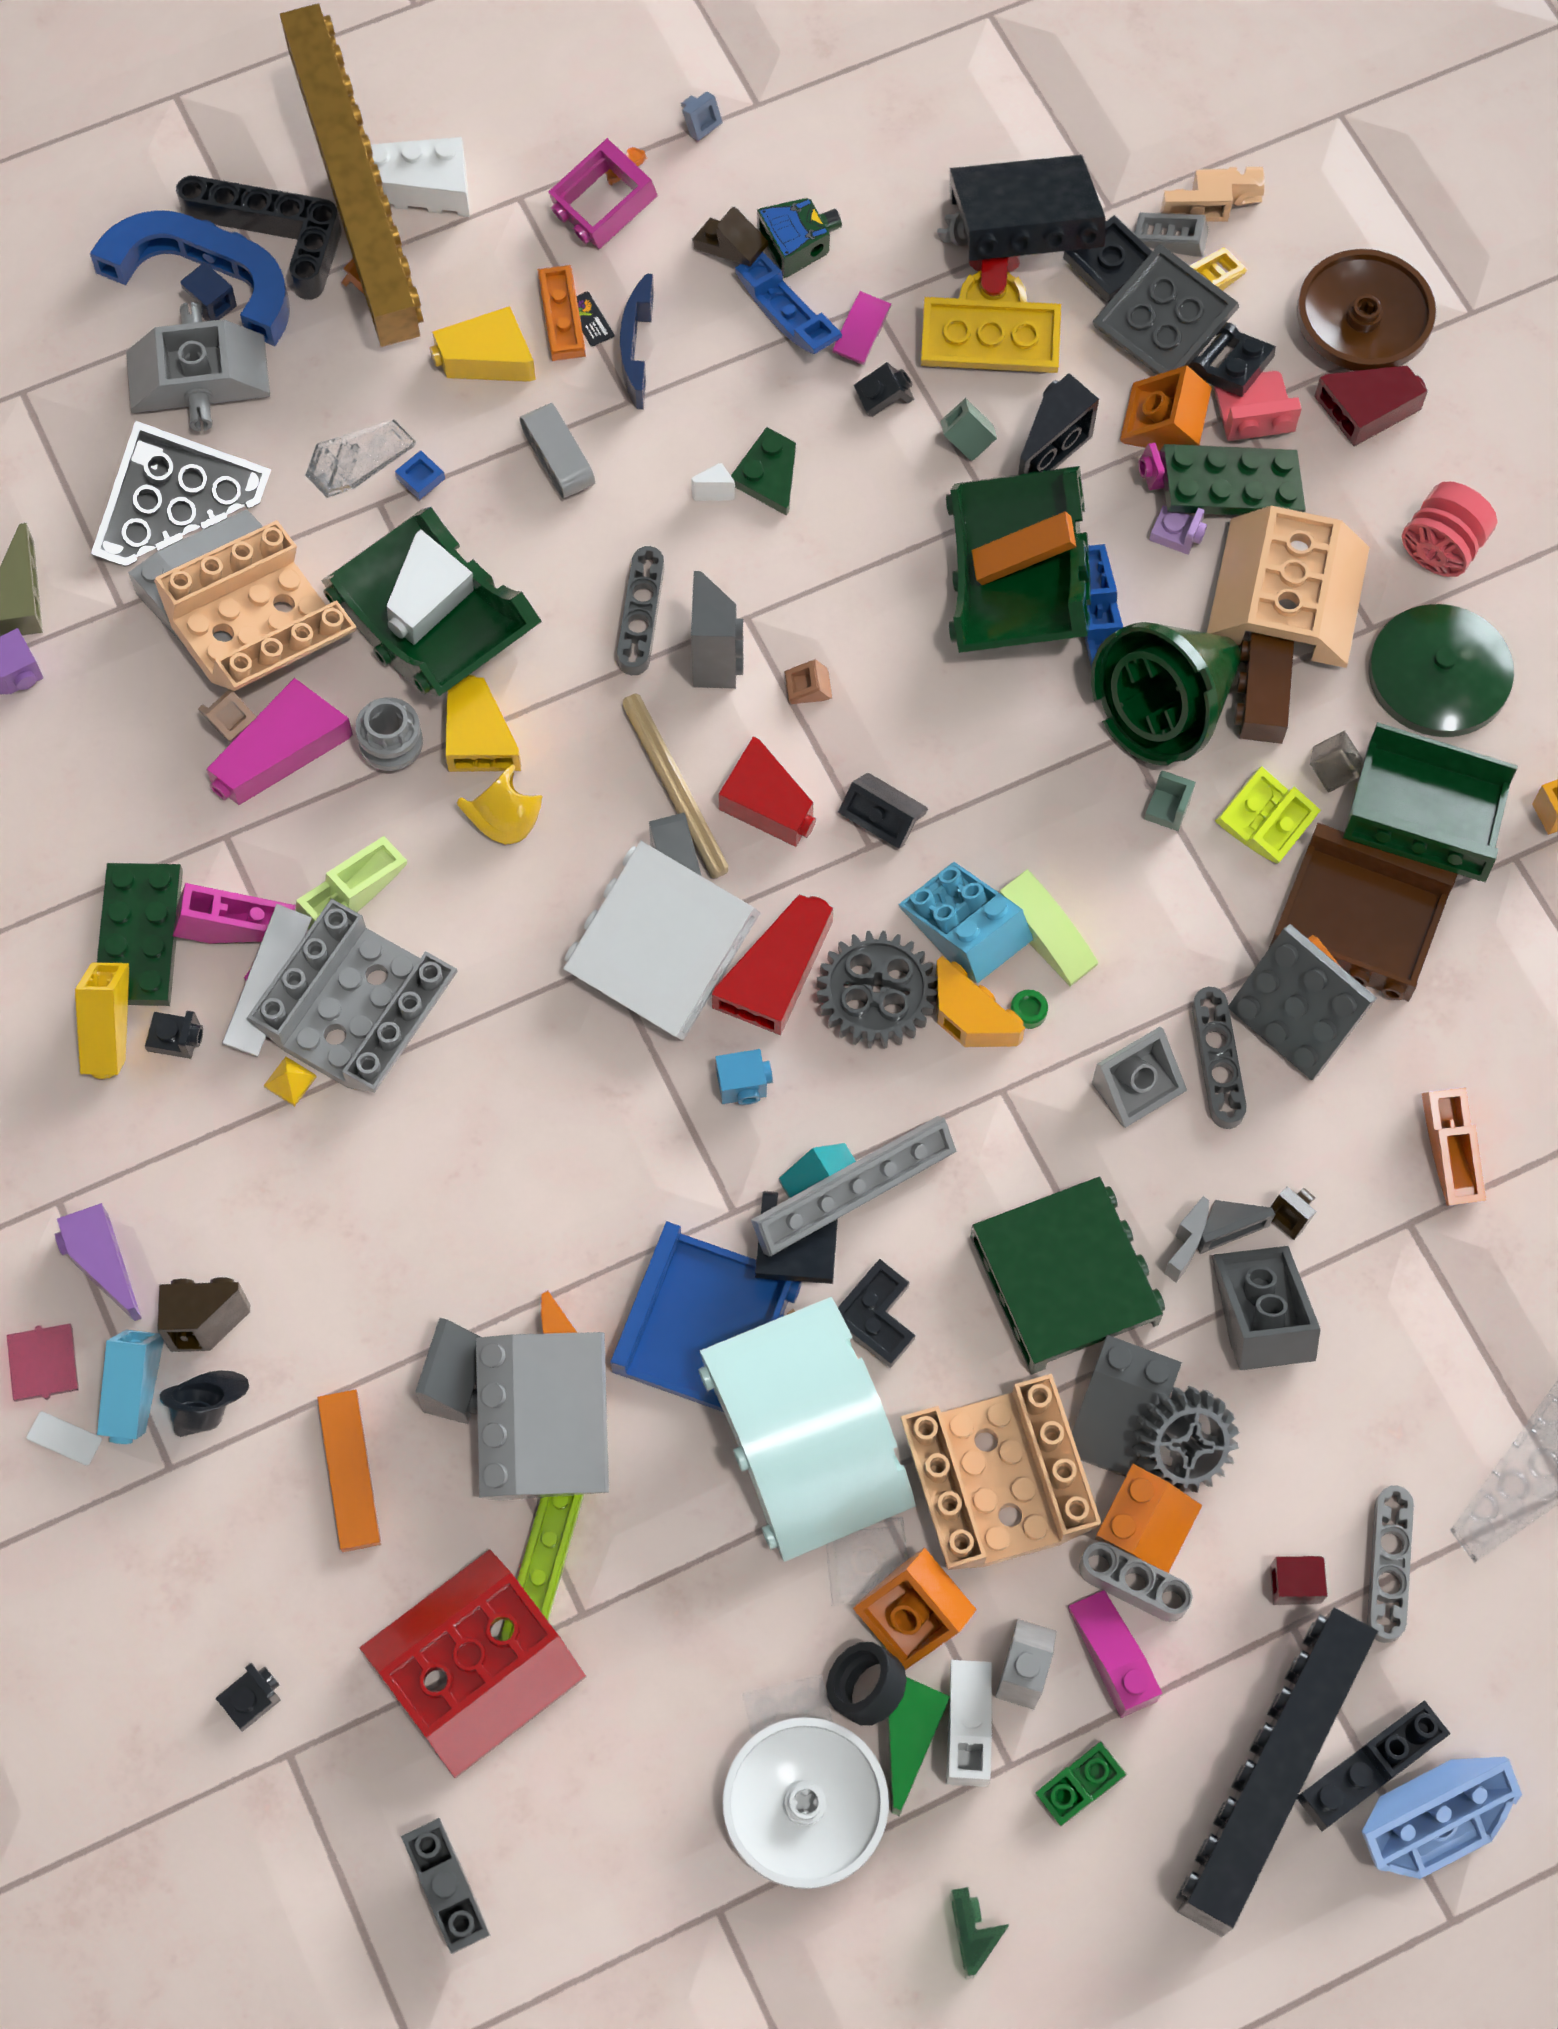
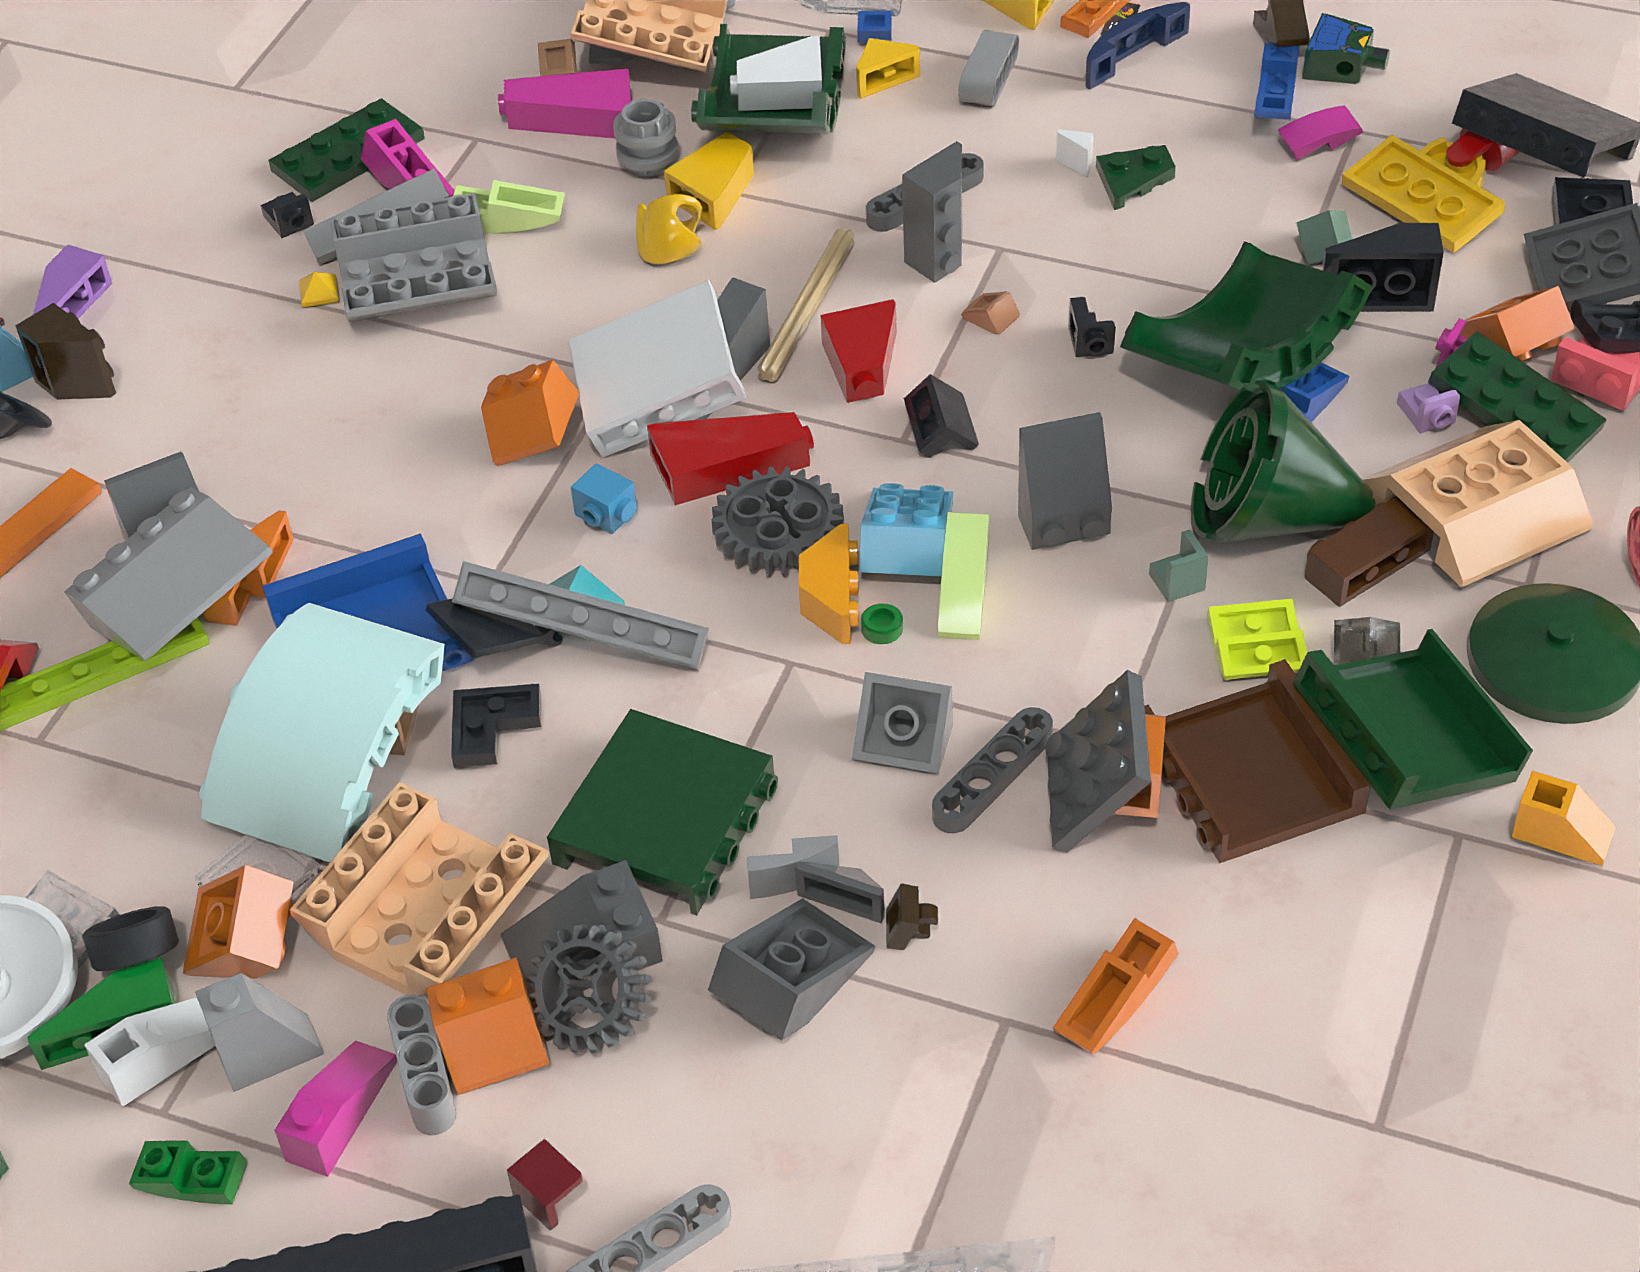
camera: 50 degrees right, 20 degrees down
(102, 1018) = (249, 162): yellow slope -> none
(475, 510) = (886, 66): none -> yellow slope
(613, 1057) = (527, 411): none -> orange slope
(883, 388) = (1291, 172): black bracket -> none
(896, 651) = (1086, 333): none -> black bracket
(1024, 548) = (1262, 317): orange tile -> none
(1052, 806) = (1064, 481): none -> dark grey slope

